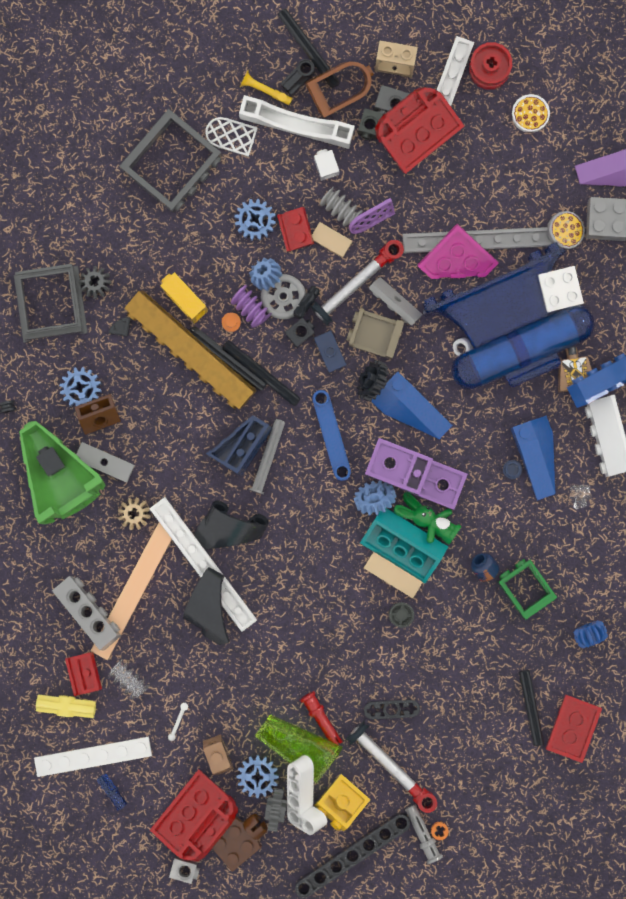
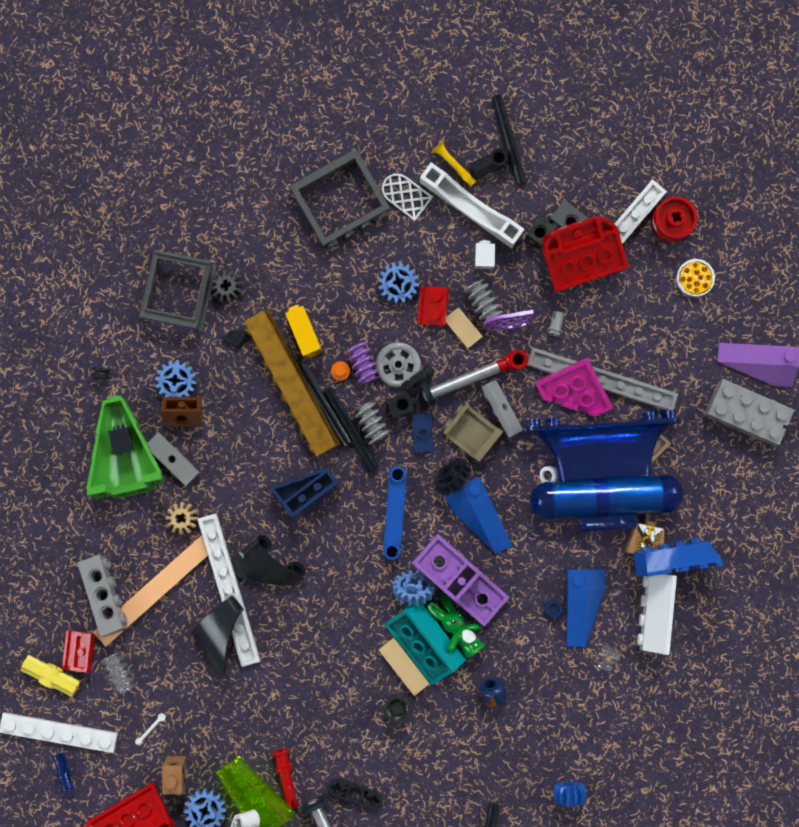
camera: 20 degrees right, 0 degrees up
(265, 274) = (389, 338): medium blue gear -> none
(268, 456) = (328, 510): light grey axle -> none
(278, 359) = (371, 422): none -> light grey piece
(319, 98) = (501, 193): dark orange window -> none
(396, 55) = (589, 177): tan window -> none
(416, 203) = (556, 323): none -> light grey pin
(539, 604) = (532, 746): green window -> none
(560, 289) = (662, 455): white plate -> none
(566, 229) = (688, 400): tile -> none

